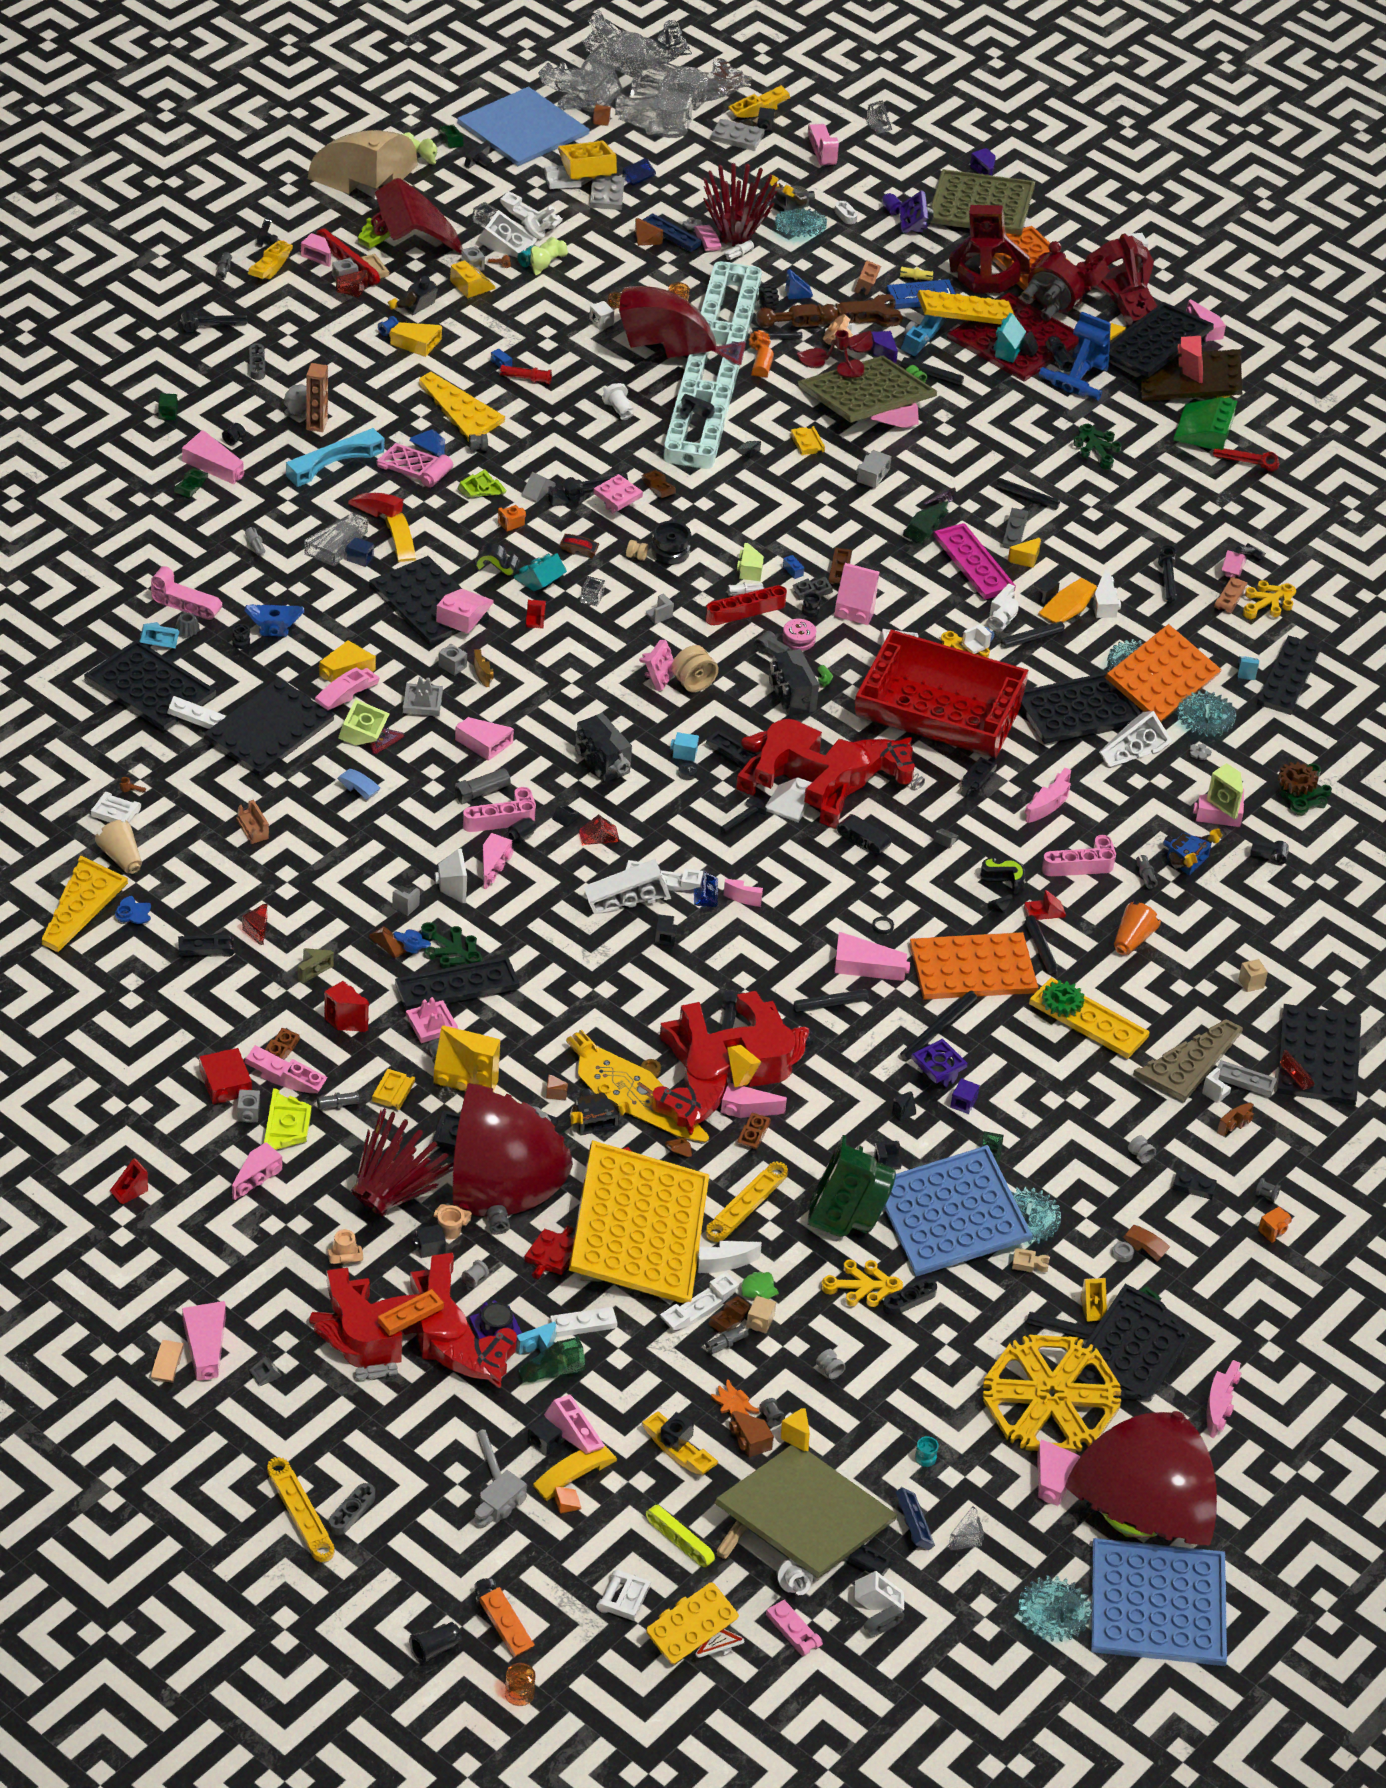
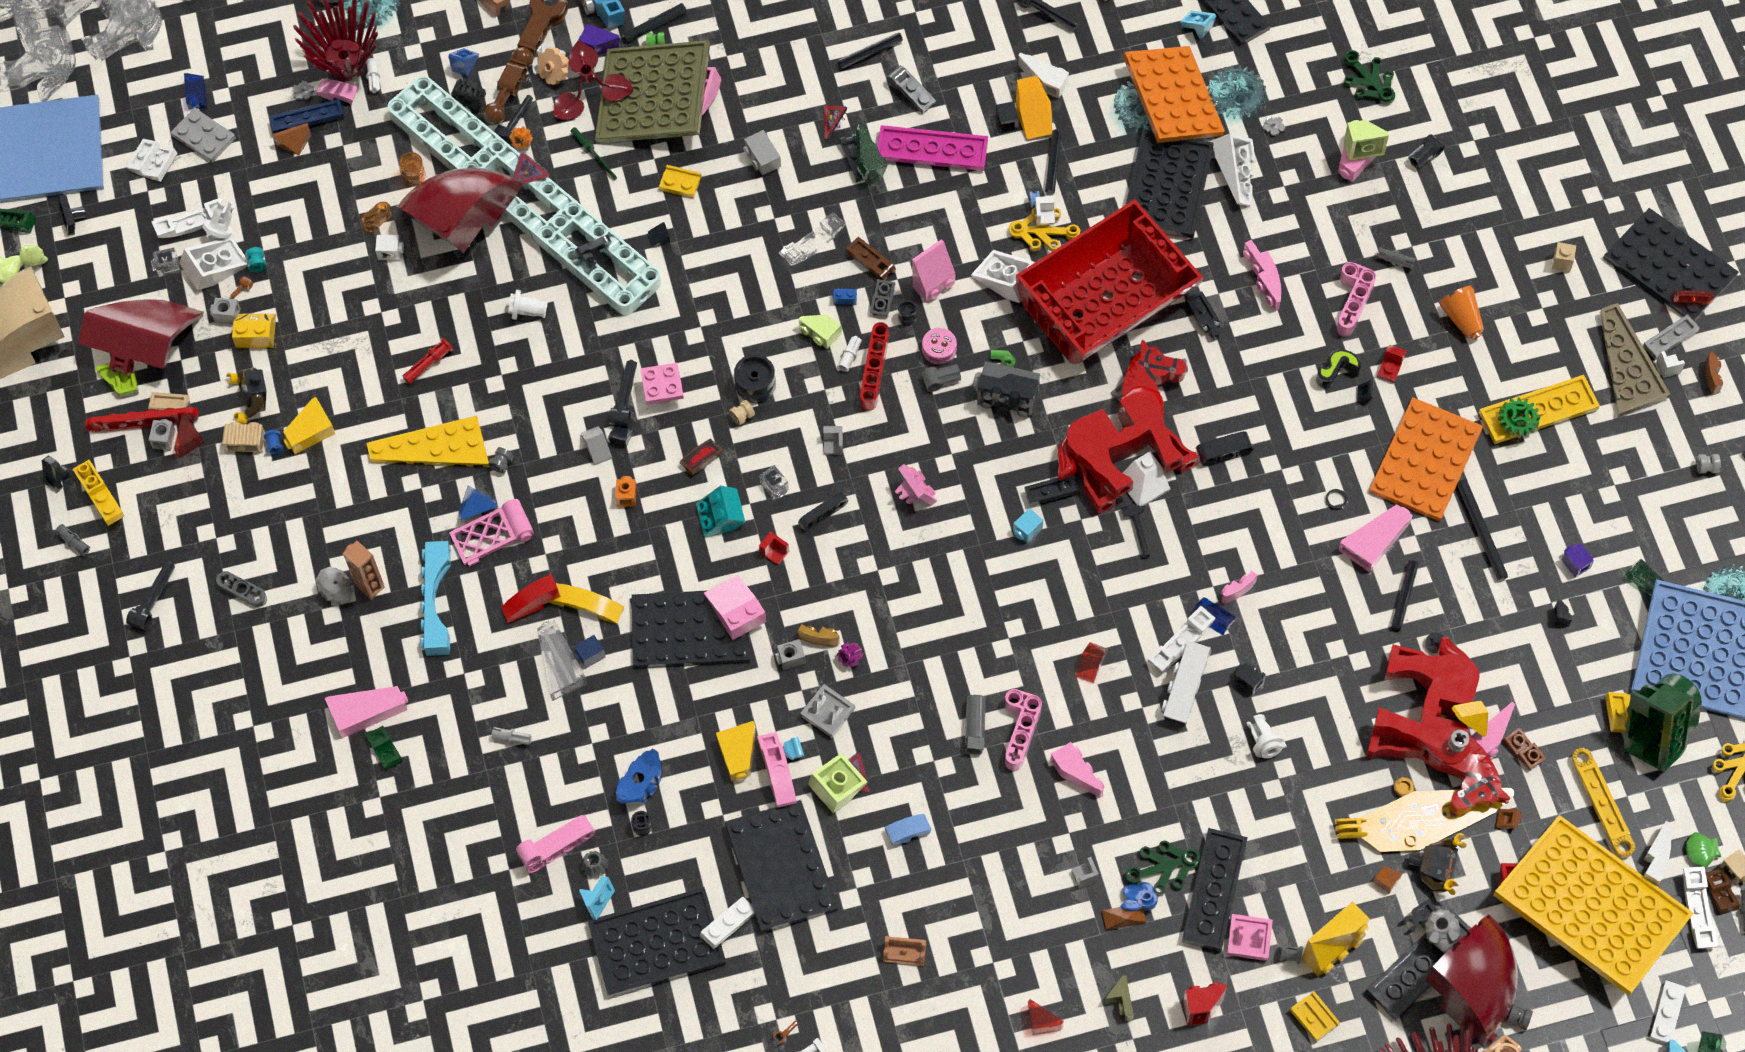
camera: 50 degrees left, 20 degrees up
(168, 406) = (258, 708): dark green brick -> none
(233, 434) = (341, 670): black wheel -> none
(316, 249) = (111, 440): bright pink slope -> none
(372, 692) = (793, 748): none -> medium azure plate
(377, 308) = (243, 437): none -> tan brick
(453, 876) = (1086, 817): white slope -> none
(480, 690) = (850, 654): none -> magenta gear
(481, 485) = (560, 492): lime slope -> none
(483, 737) = (912, 688): bright pink slope -> none
(497, 557) = (680, 538): black animal -> none
(500, 358) = (390, 371): blue piece -> none
(521, 829) = (1053, 724): black brick -> none
(542, 255) = (260, 235): yellowish green animal -> none
(550, 1252) = (1576, 992): red plate -> none
(565, 815) = (1051, 675): black slope -> none
(577, 622) = (823, 511): none -> black beam
(588, 159) = (156, 124): yellow slope -> none
(602, 115) = (85, 71): dark orange slope -> none
(603, 747) = (998, 596): black piece -> none
(615, 961) = (1267, 743): none -> white piece
(657, 483) = (658, 341): reddish brown slope -> none
(687, 771) = (1055, 541): black tile -> none
(694, 668) = (940, 459): tan wheel -> none
(708, 1058) = (1460, 735): none -> light grey bush
(729, 1005) = (1366, 675): black axle -> none
(763, 362) = (548, 153): orange brick -> none
(788, 382) = (588, 146): none -> dark green sword
(823, 531) = (814, 241): none -> clear slope
(888, 1154) = (1611, 662): black panel -> none
(938, 1066) = (1534, 559): dark purple piece -> none
(945, 838) = (1262, 385): dark grey slope -> none
(1003, 609) = (1010, 164): white plate -> none
(1025, 553) = (952, 100): yellow slope -> none
(1041, 944) = (1432, 391): black axle -> none
(1190, 851) = (1394, 212): torso -> none
(1298, 778) = (1361, 75): reddish brown gear -> none

